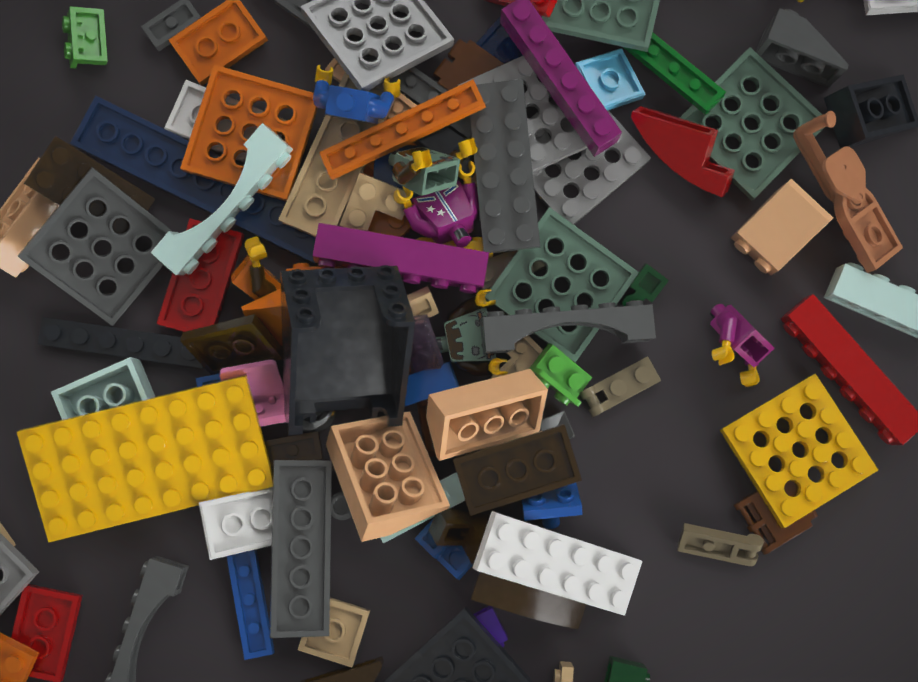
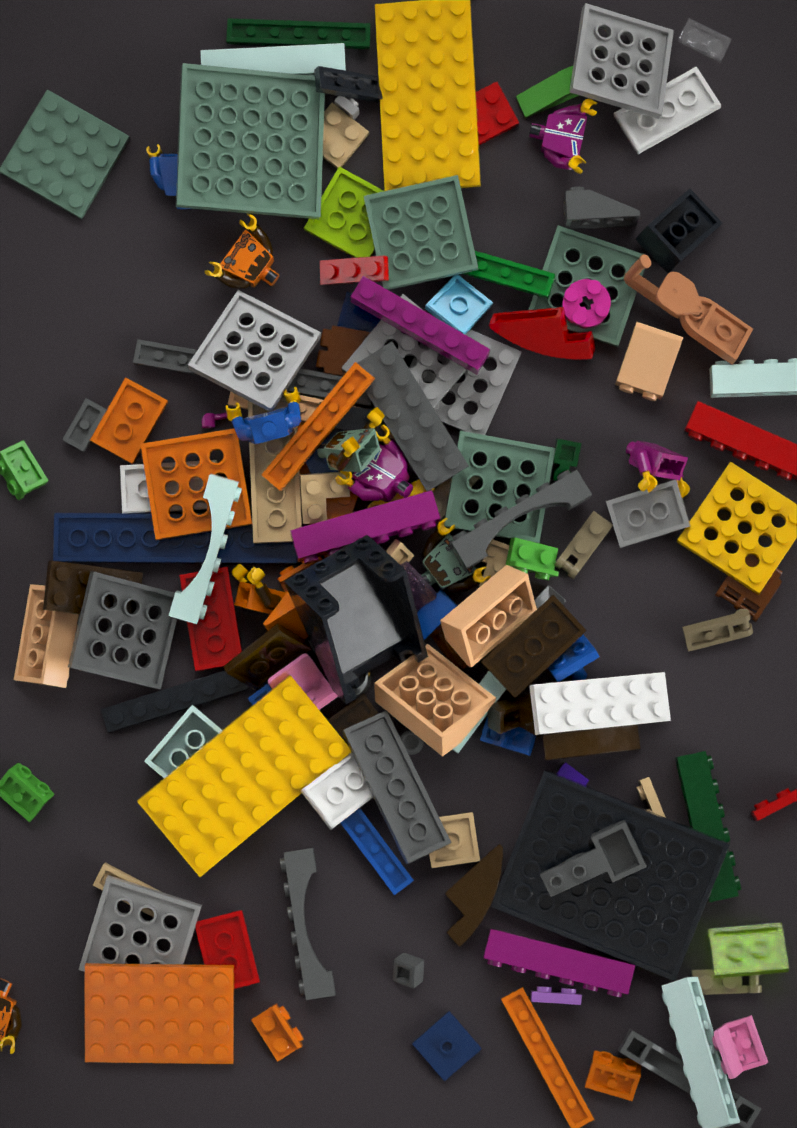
camera: 25 degrees left, 0 degrees up
(299, 77) = (208, 419): none -> magenta hand
(704, 386) = (648, 515): none -> light grey plate
(756, 130) = (592, 291): none -> dark pink plate

